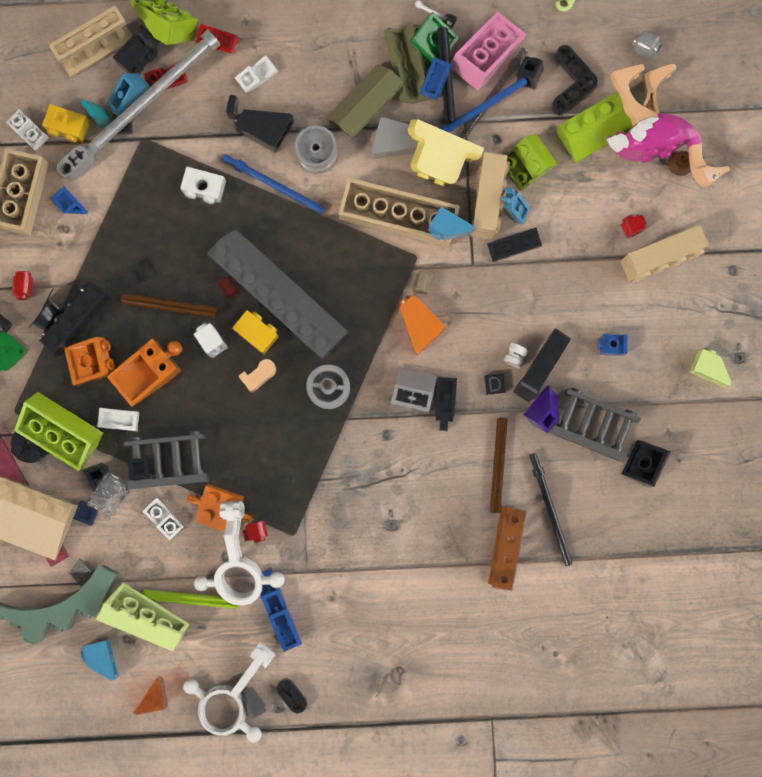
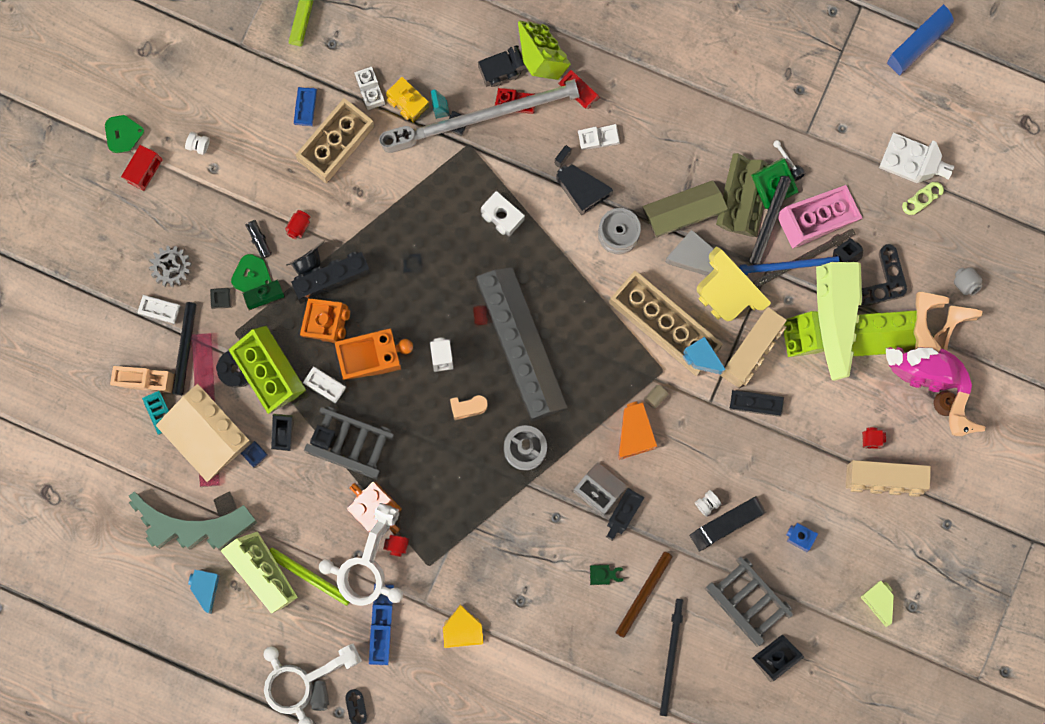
camera: 25 degrees right, 5 degrees down
(22, 364) = (263, 295): none -> dark green plate
(67, 202) = (373, 170): blue slope -> none
(91, 41) = (467, 40): tan fence -> none
(109, 495) = (283, 448): clear bracket -> none
(127, 92) = (475, 98): dark azure slope -> none
(154, 699) = (233, 648): clear orange slope -> none
(162, 518) = (319, 492): white slope -> none
(170, 305) = (419, 305): reddish brown axle -> none
(241, 167) = (544, 213): blue bar -> none
(255, 331) = (485, 367): yellow brick -> none
(352, 577) = (462, 629): none -> yellow slope
(435, 79) = (757, 220): blue plate -> none
(452, 466) = (601, 575): none -> dark green plate
(494, 384) = (676, 520): black tile -> none
(506, 548) = (614, 669): dark orange fence -> none
(515, 205) = (774, 368): dark azure plate -> none
(544, 410) = (709, 565): dark purple slope -> none
(546, 122) = (838, 302): none -> yellowish green wedge

